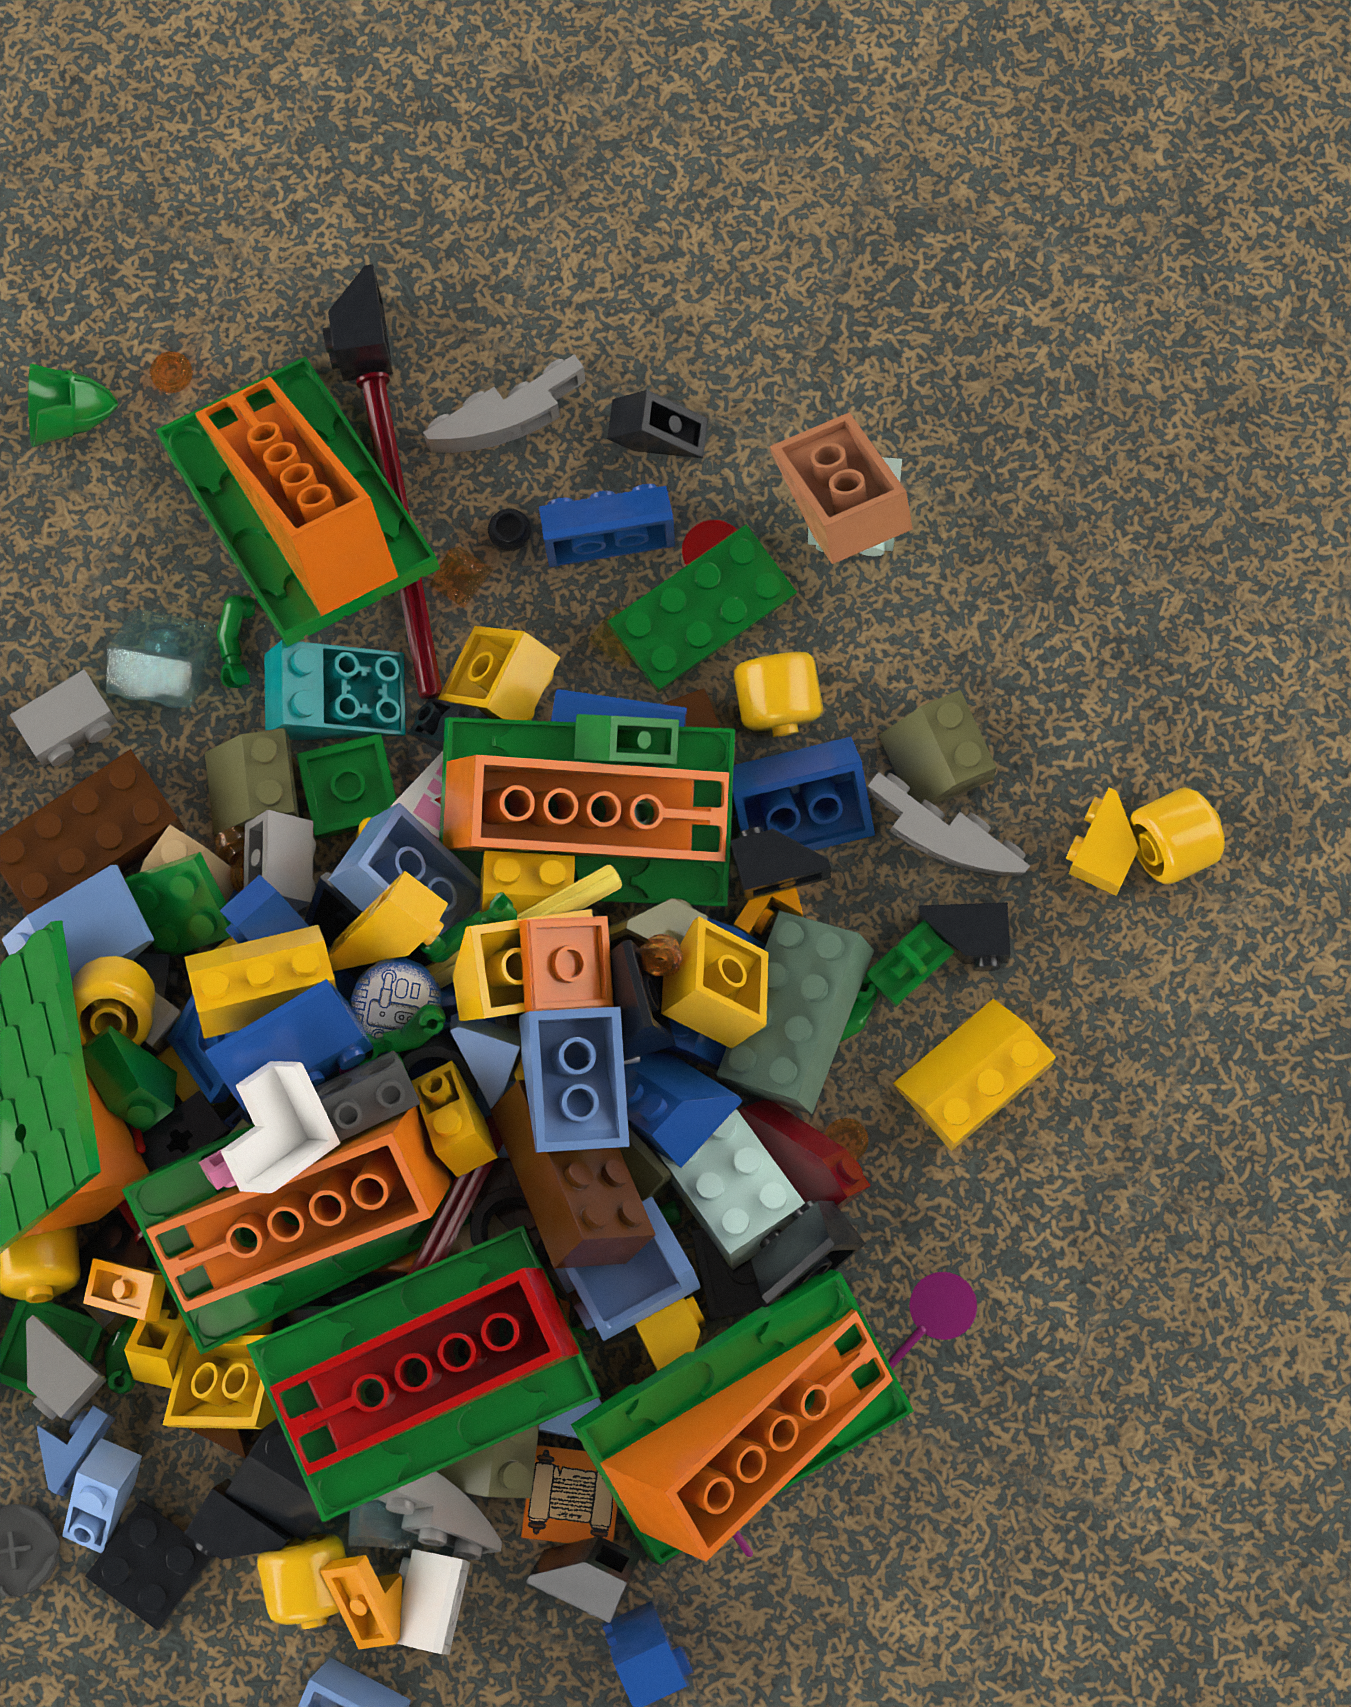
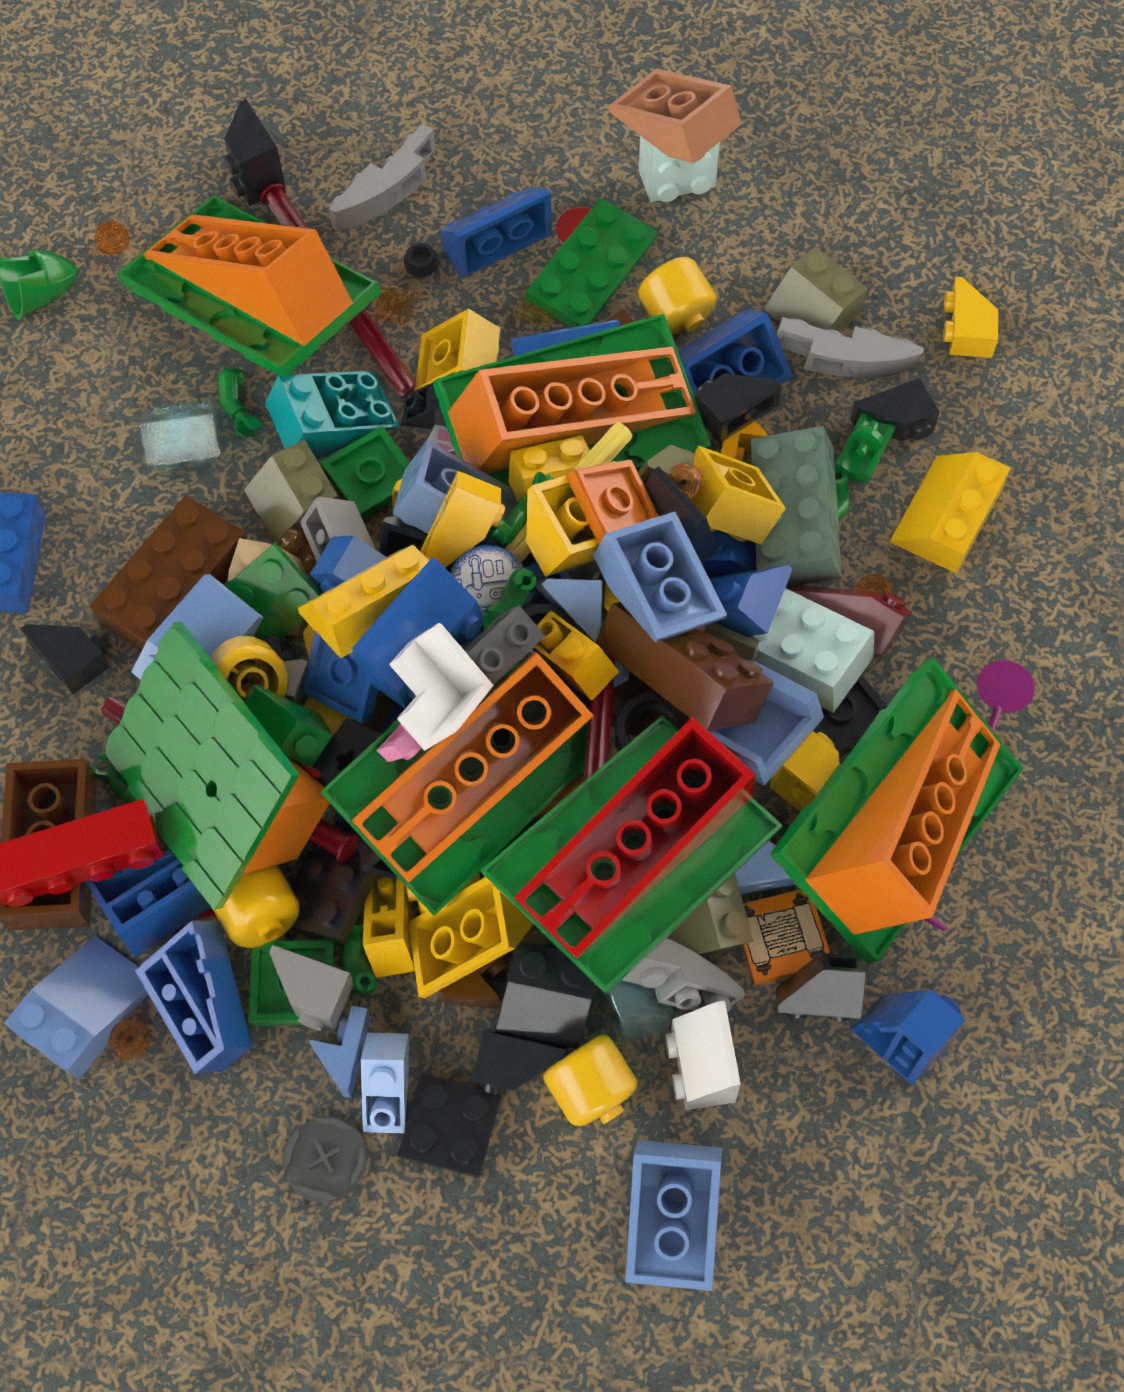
camera: 25 degrees left, 10 degrees down
(64, 719) = (120, 499): light grey brick -> none
(125, 1289) = (347, 892): light orange slope -> none
(365, 1600) = (652, 1073): light orange slope -> none
(626, 739) = (583, 337): green slope -> none
(656, 426) = (502, 155): black slope -> none
(809, 1246) = (892, 658): black slope -> none
(1177, 835) = (1023, 293): yellow head -> none

